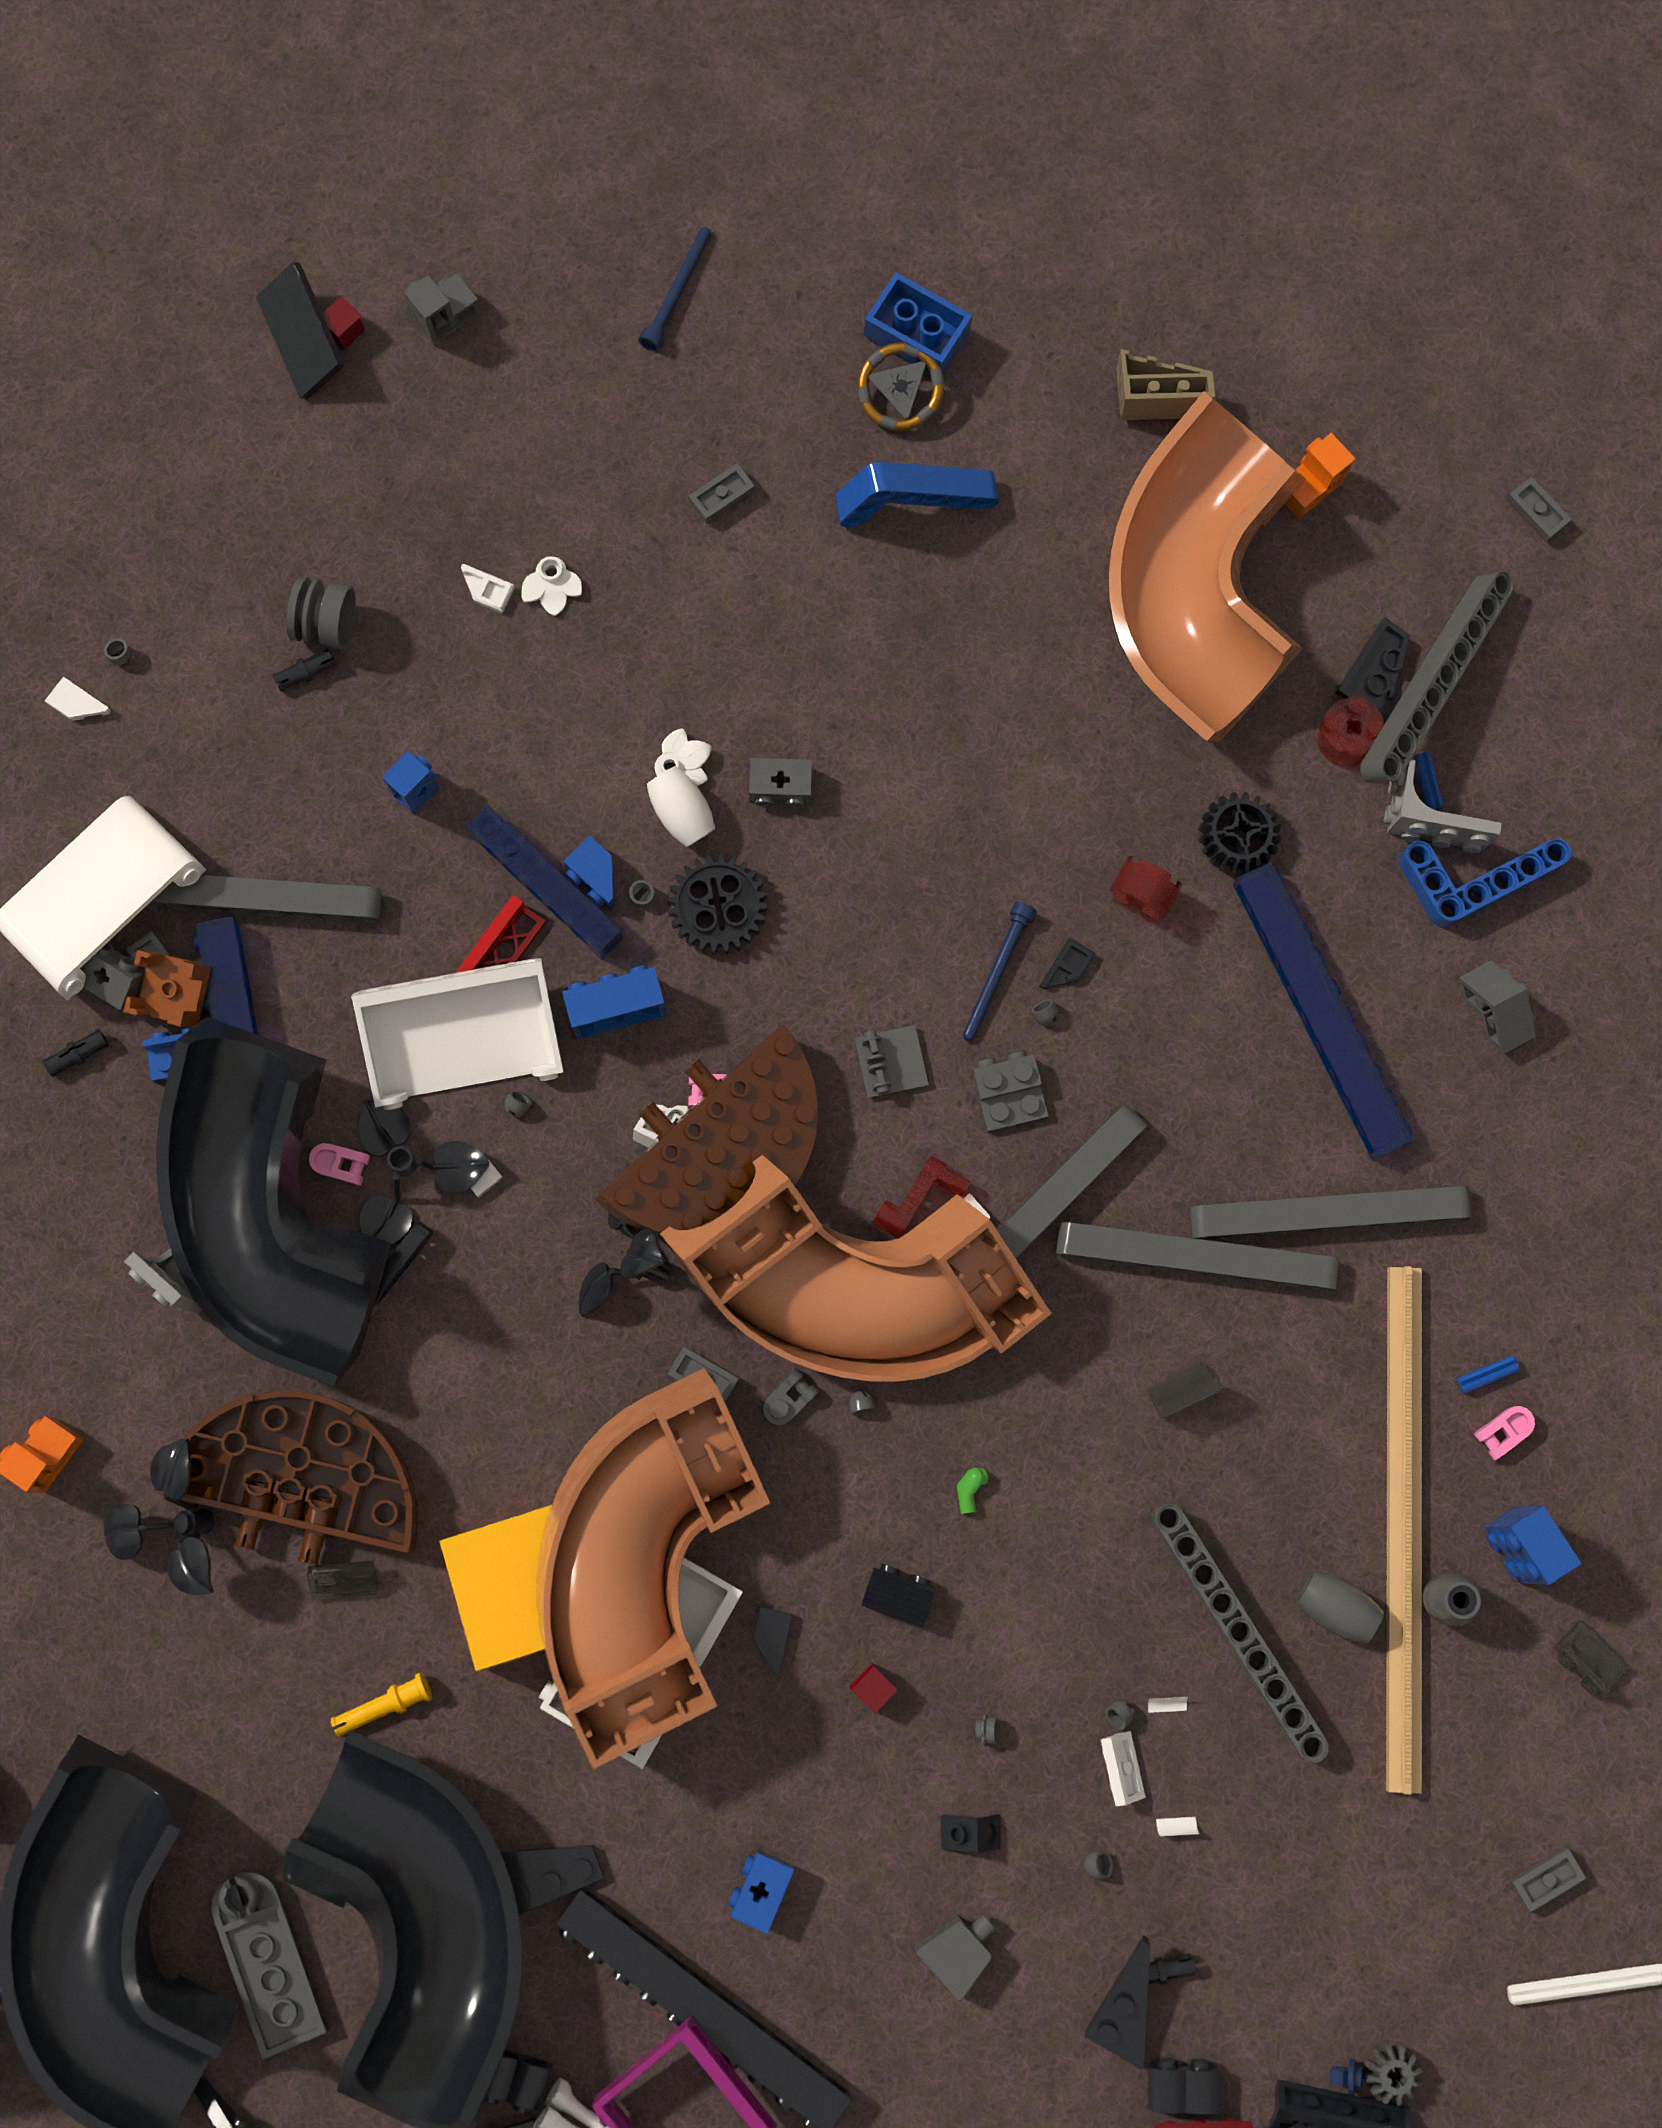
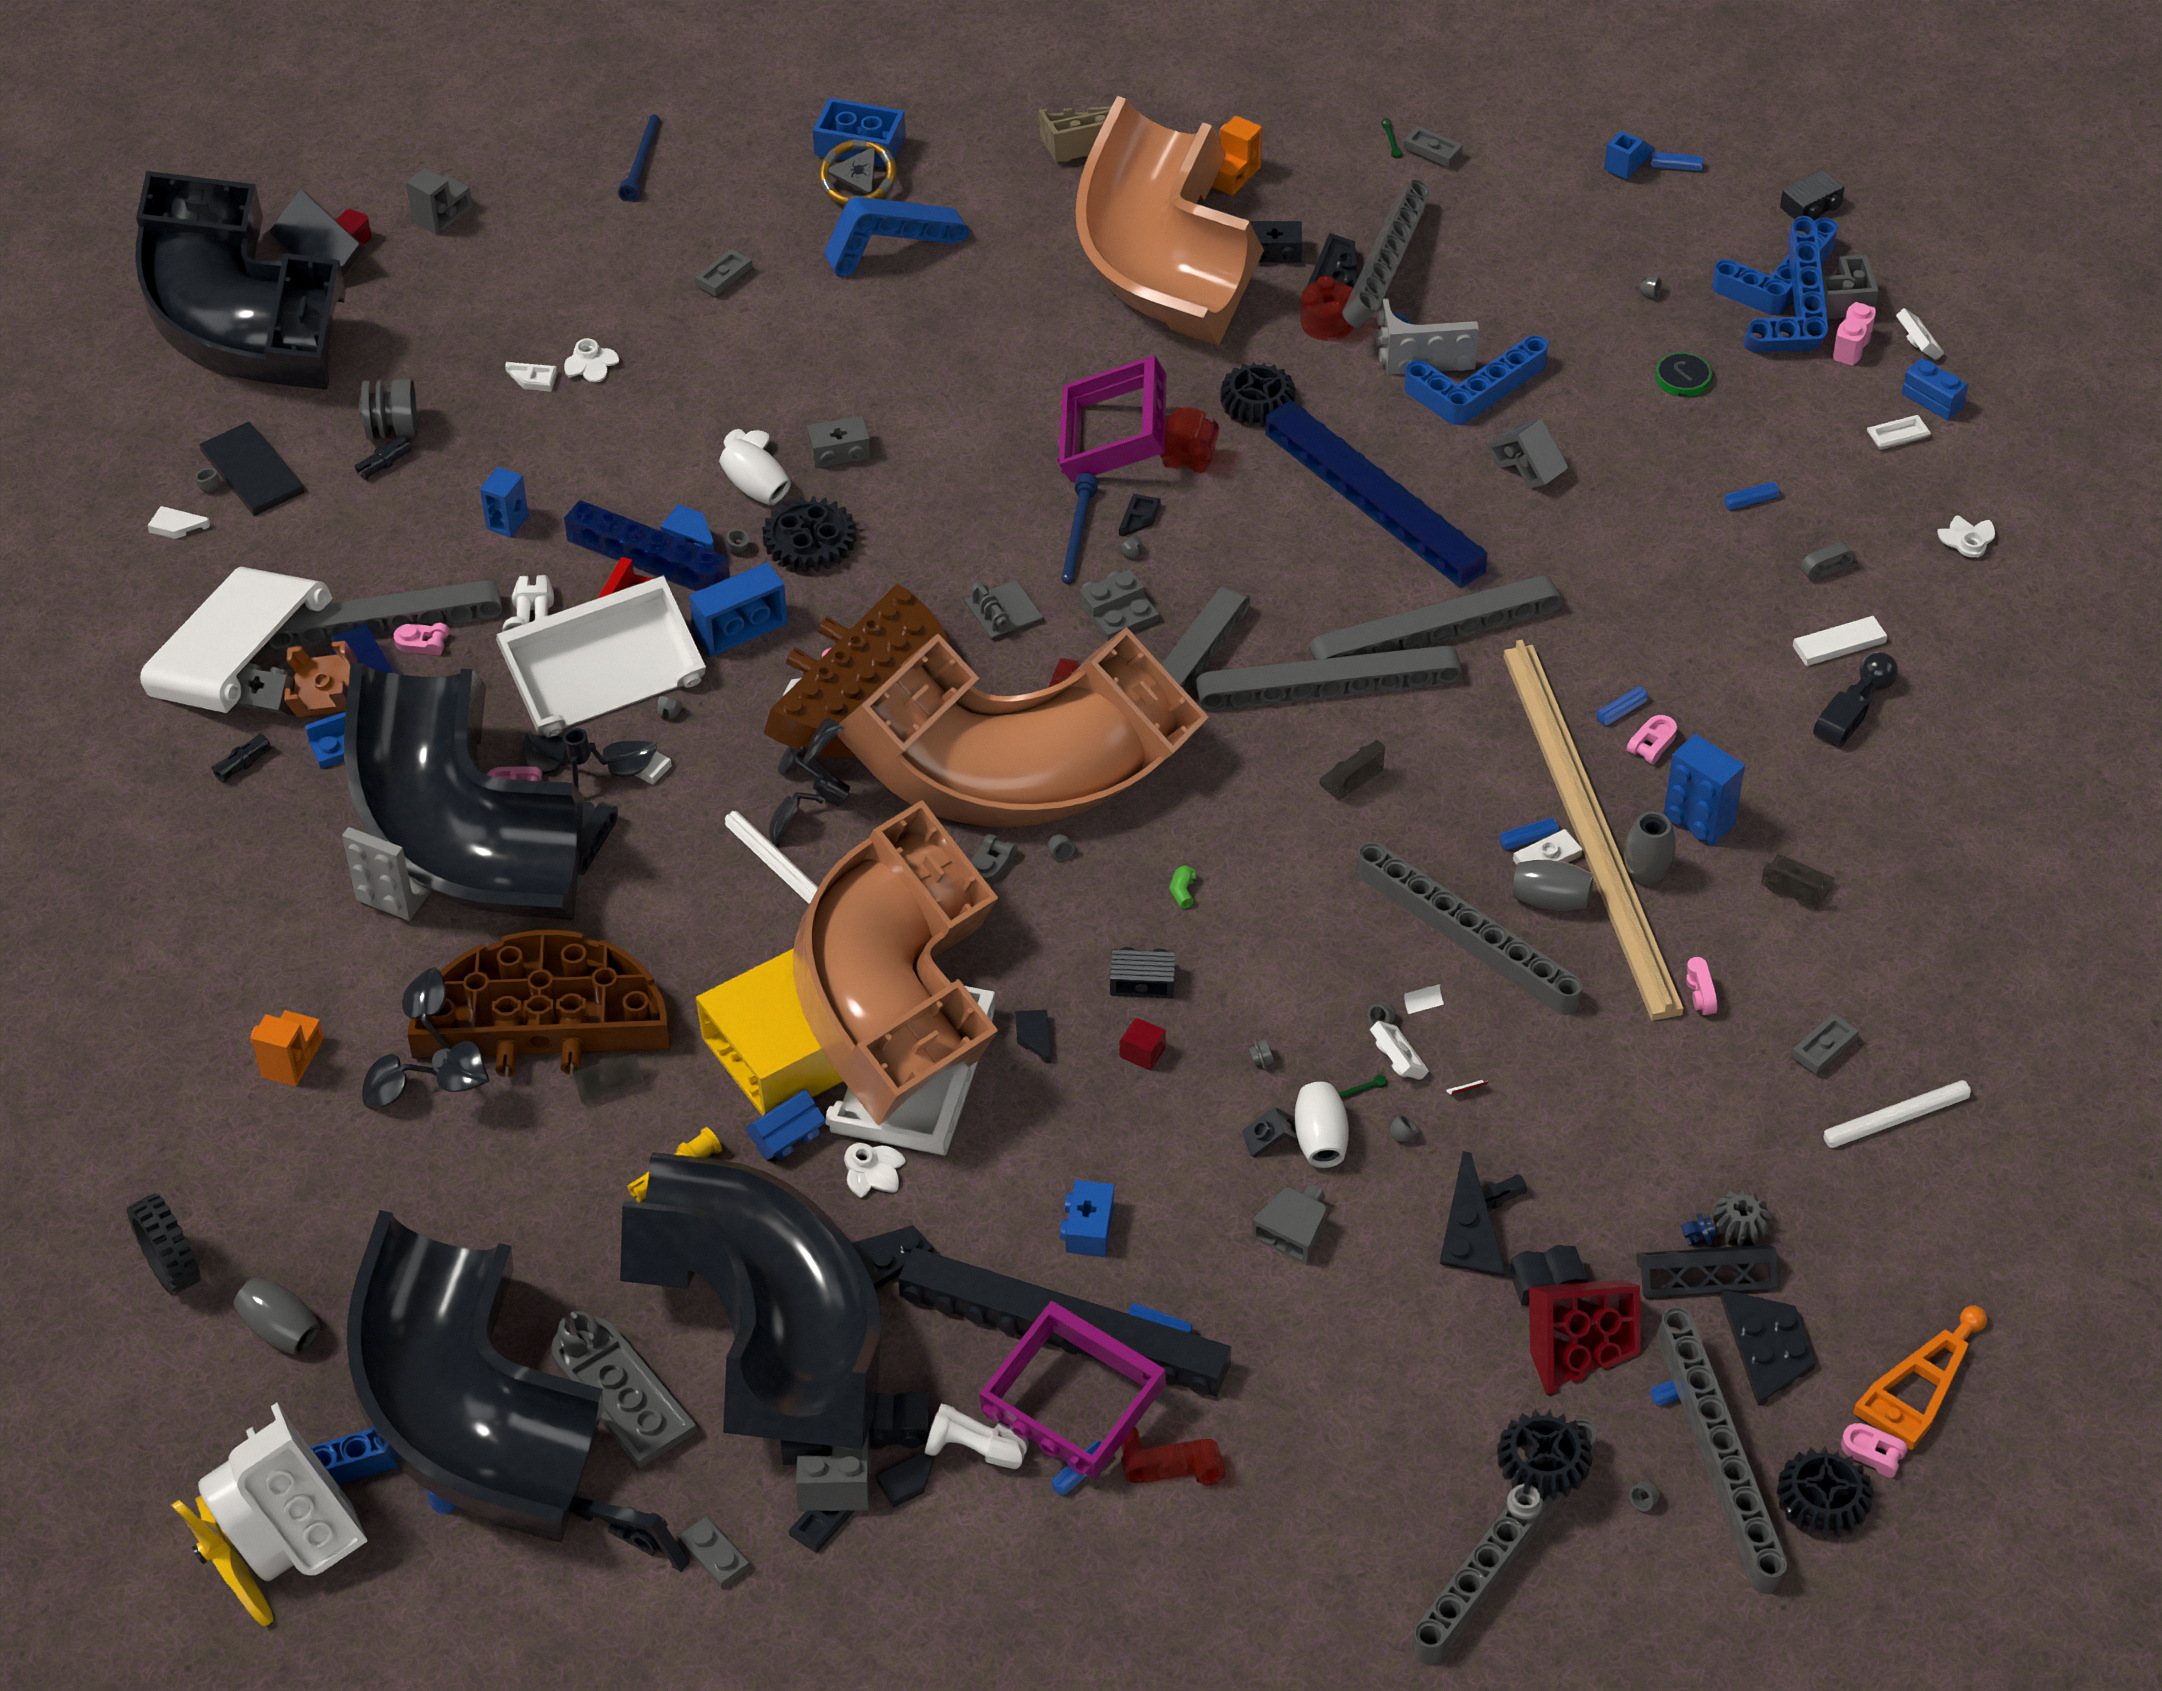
camera: 10 degrees left, 30 degrees down
(166, 391) = (219, 301): none -> black piece
(168, 644) = (251, 468): none -> black tile
(280, 931) = (412, 637): none -> bright pink plate
(405, 914) = (530, 597): none -> white piece
(498, 1695) = (785, 1125): none -> blue brick
(572, 1769) = (876, 1171): none -> white plate
(576, 1340) = (771, 855): none -> white axle
(796, 2029) = (1159, 1317): none -> blue axle
(1017, 1847) = (1321, 1124): none -> white piece
(1093, 1792) = (1379, 1082): none -> dark green hinge
(1118, 850) = (1151, 442): none -> magenta window
(1337, 607) = (1279, 240): none -> black brick
(1339, 1519) = (1528, 833): none -> blue axle
(1349, 1550) = (1555, 847): none -> white plate
(1447, 1788) = (1700, 980): none -> bright pink plate
(1496, 502) = (1395, 153): none -> dark green hinge

